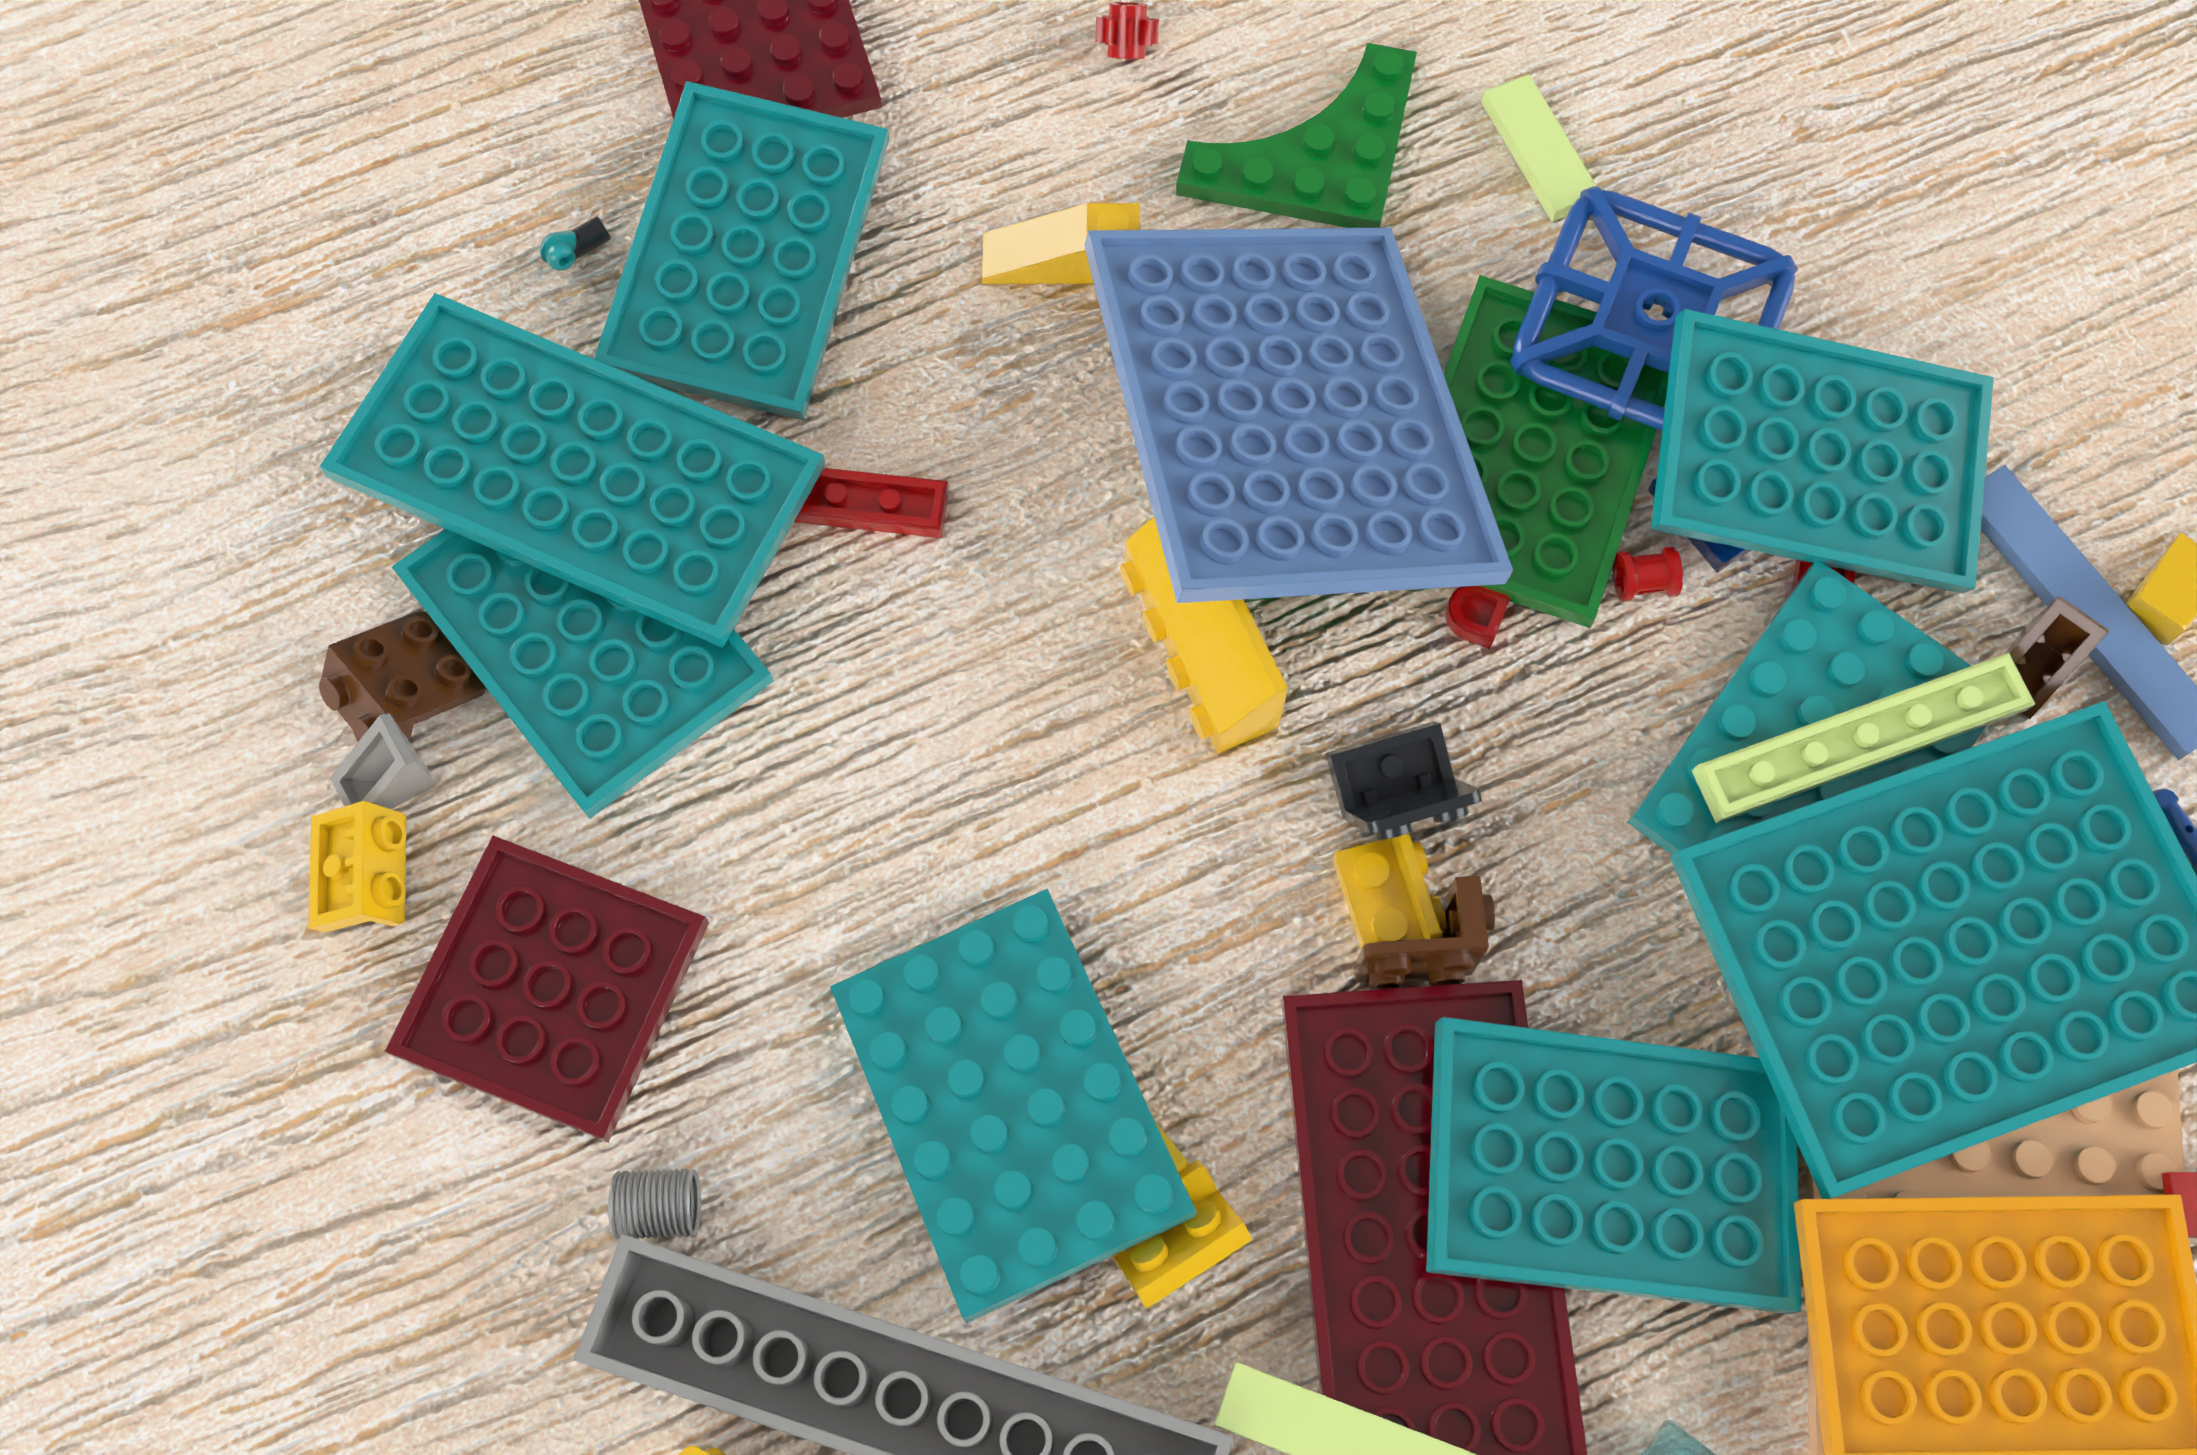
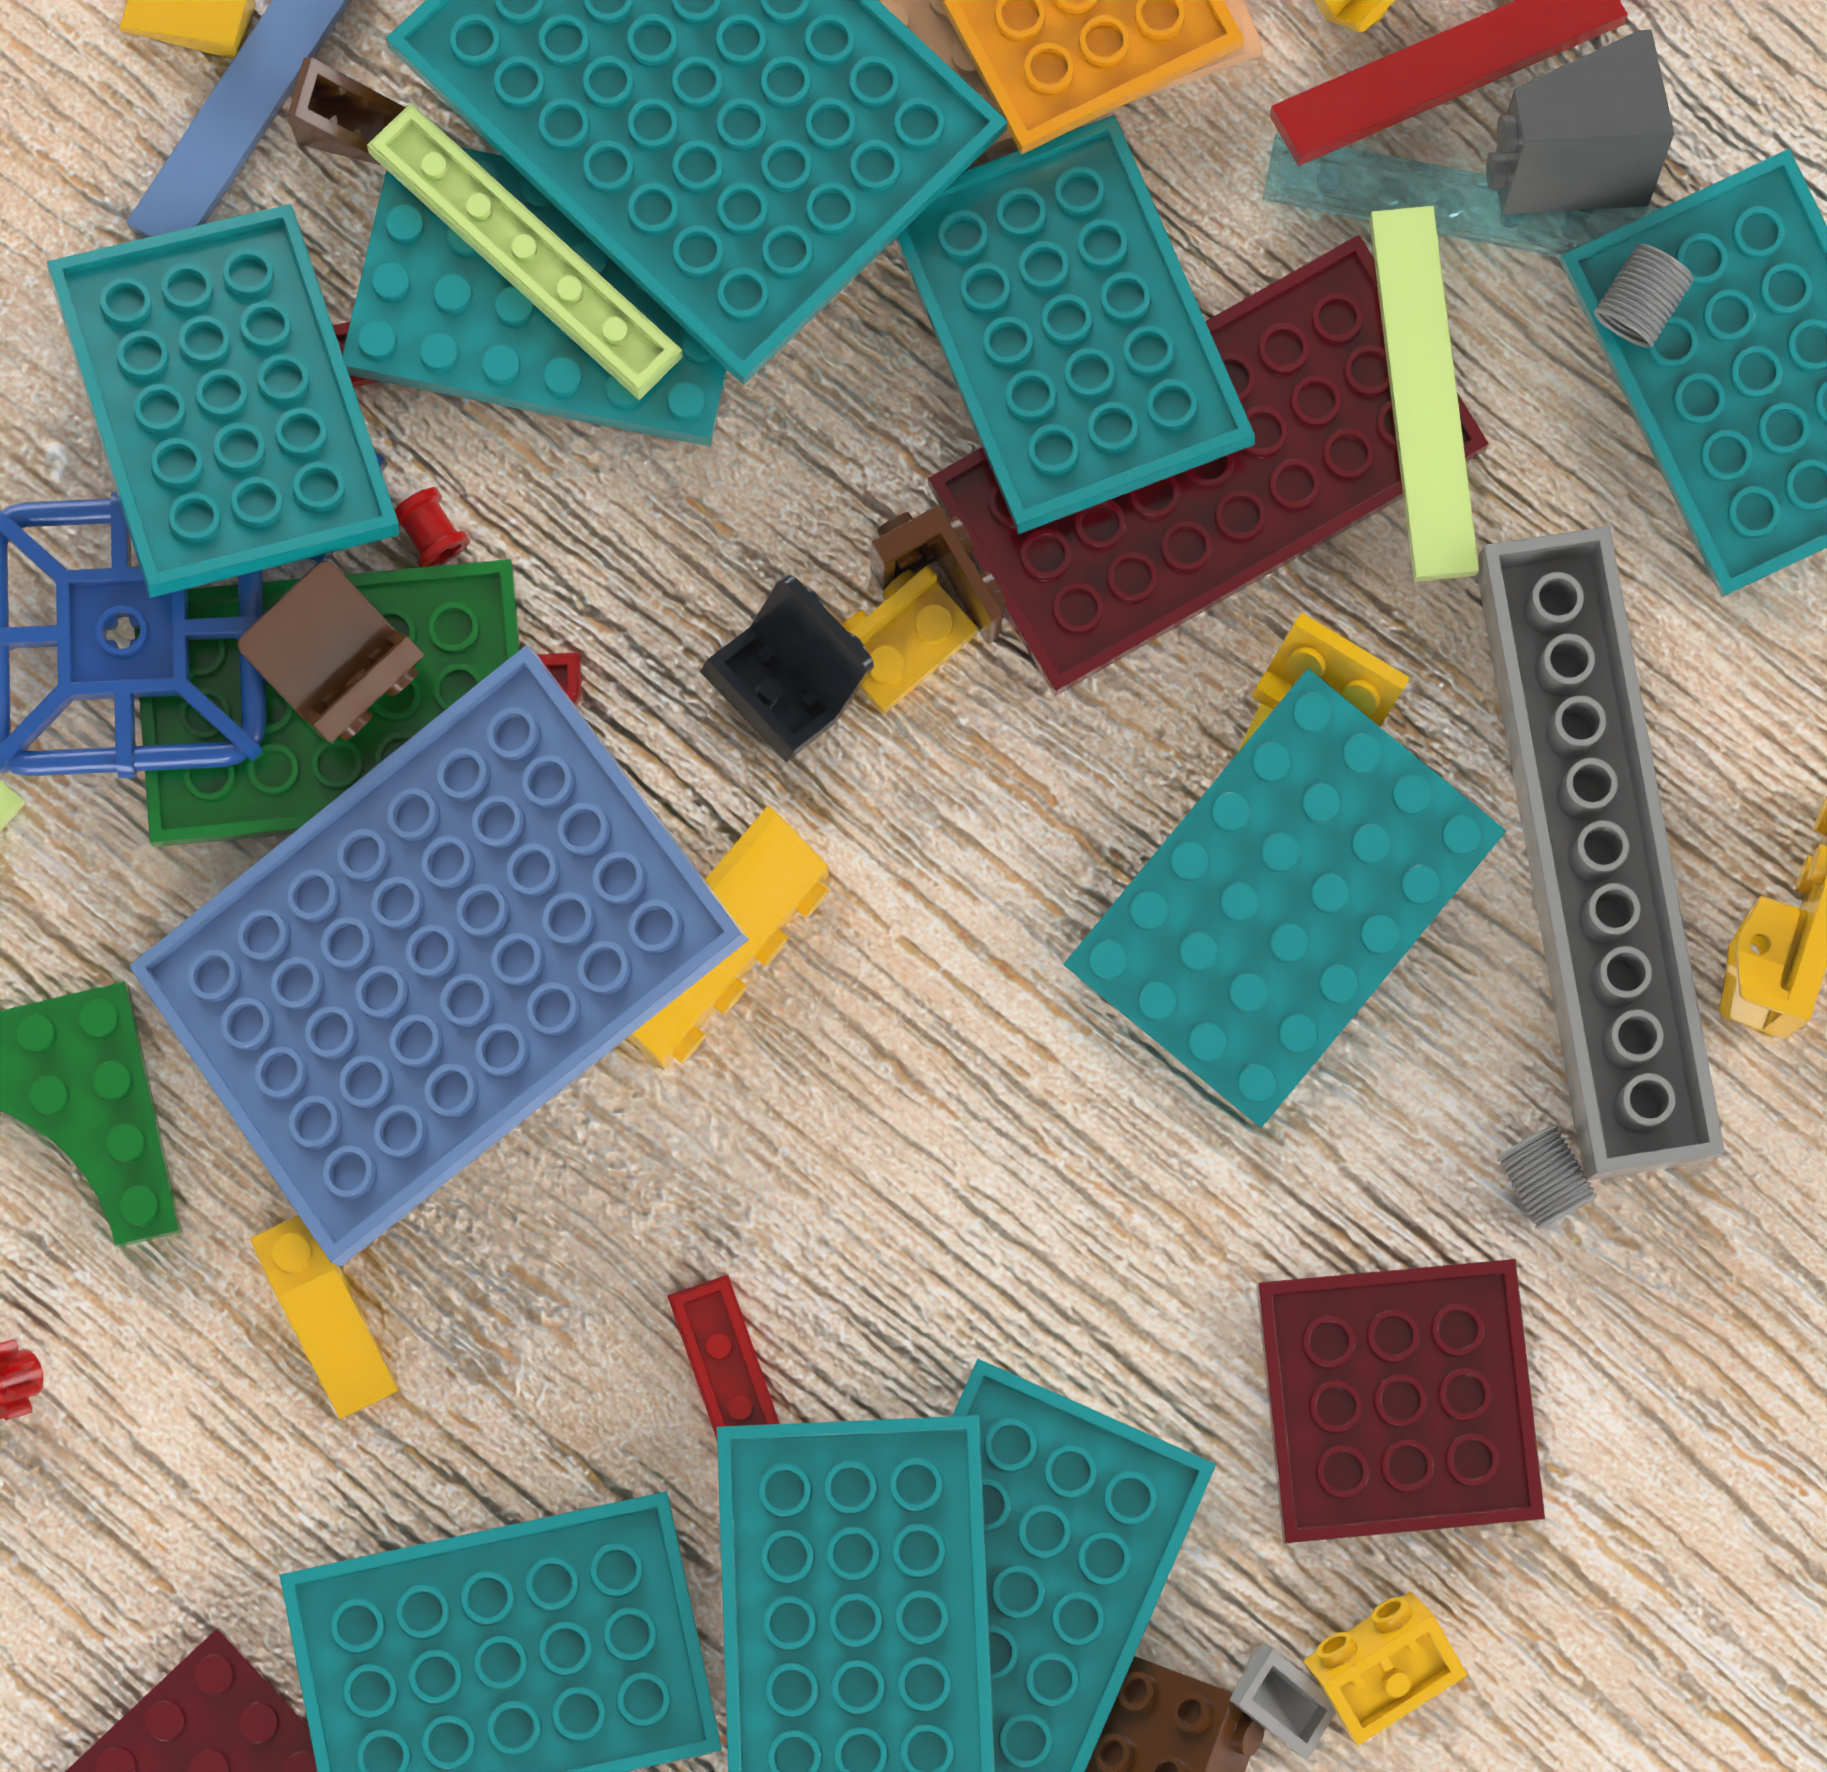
camera: 120 degrees left, 10 degrees up
(1574, 439) = (329, 652): none -> reddish brown bracket

